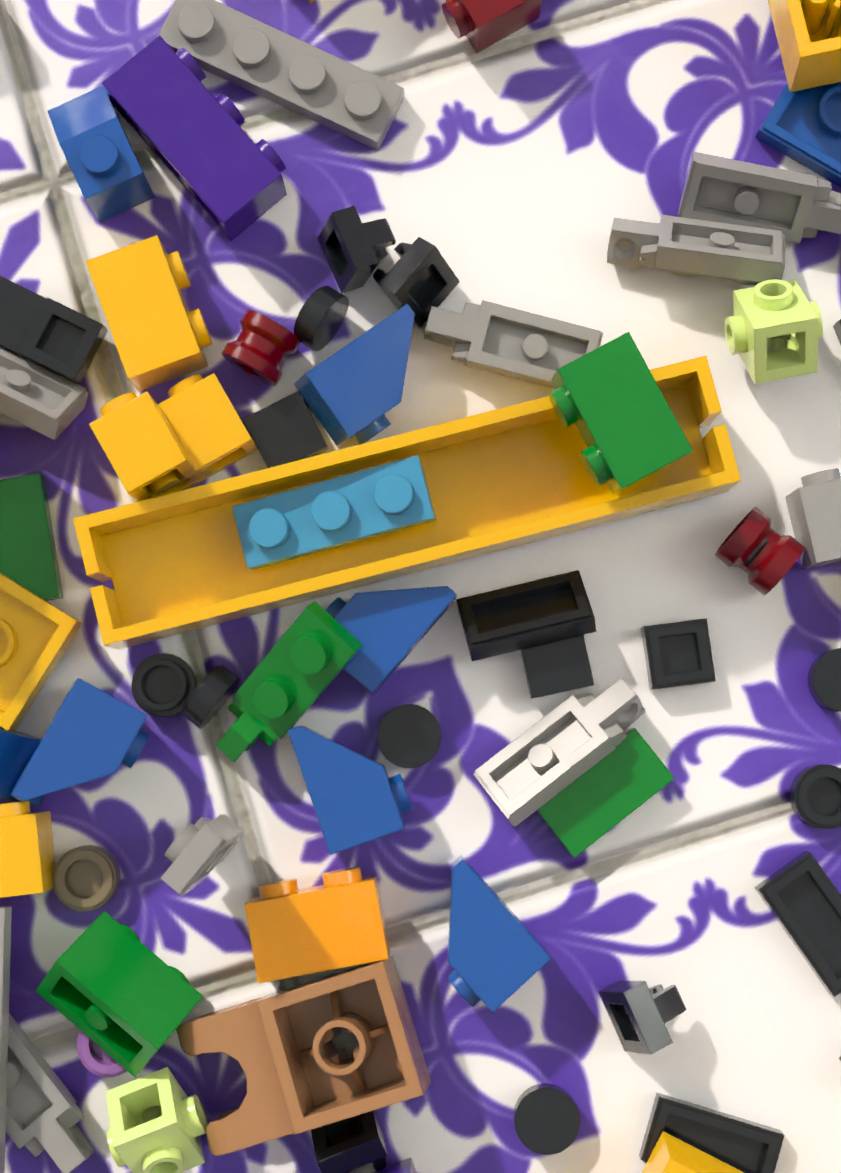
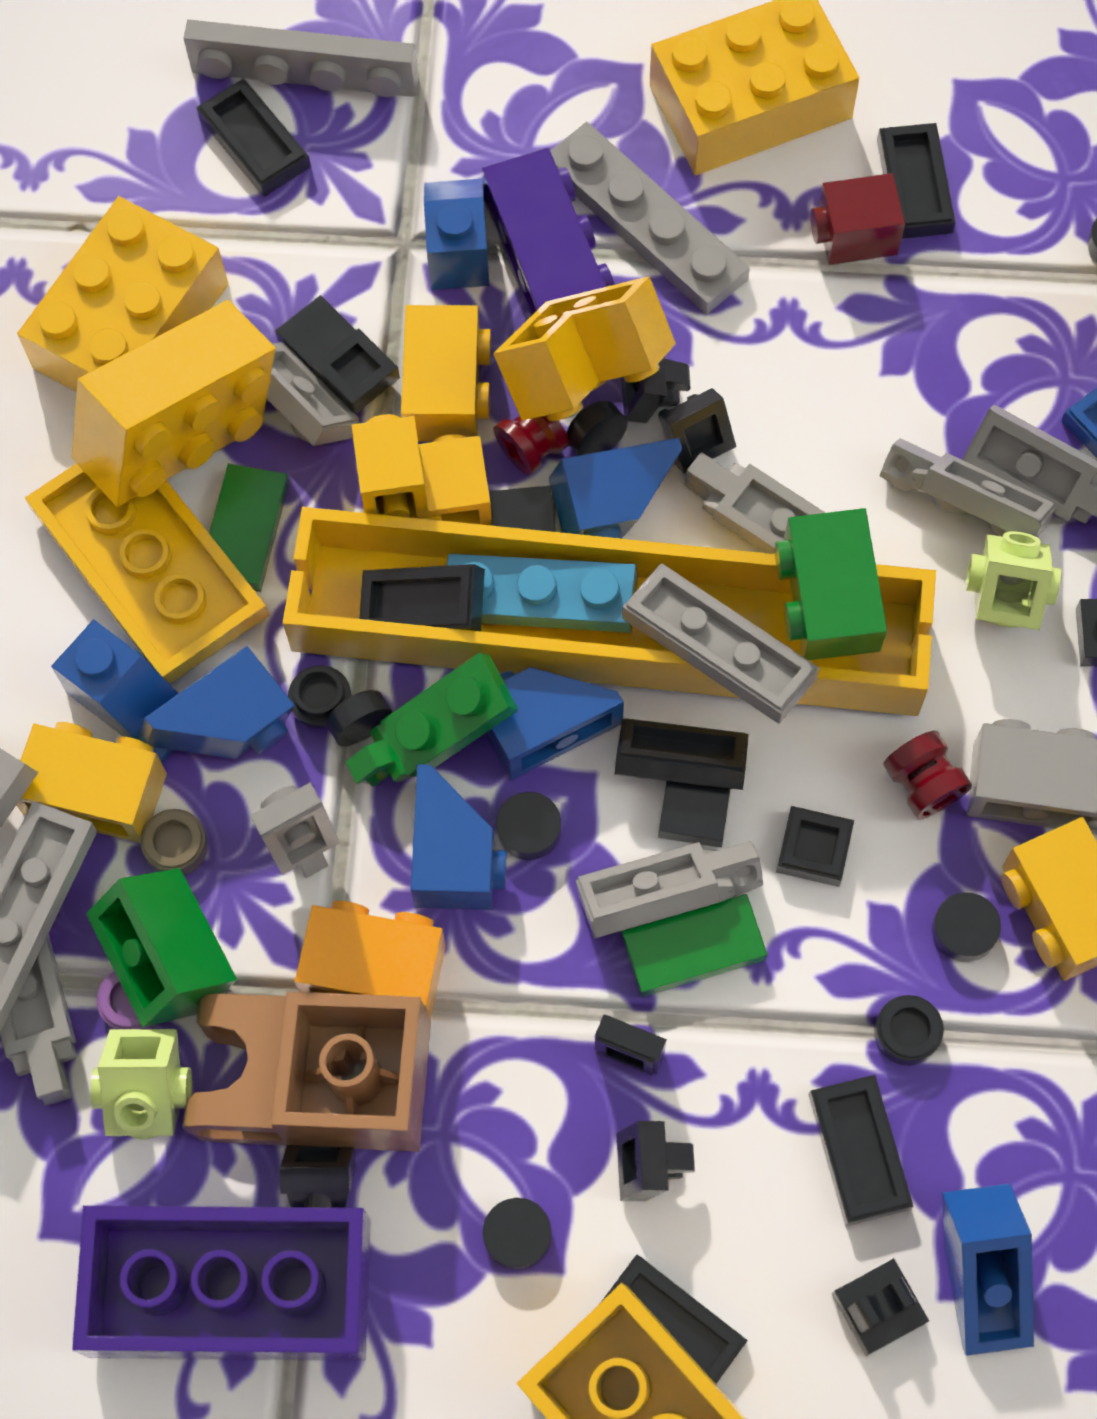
camera: 20 degrees right, 15 degrees down
(226, 565) = (425, 596): none -> black tile
(276, 244) = (581, 344): none -> yellow brick
(487, 942) = (527, 1034): blue slope -> none
(530, 509) = (720, 643): none -> light grey tile
(584, 914) = (629, 1045): none -> black tile

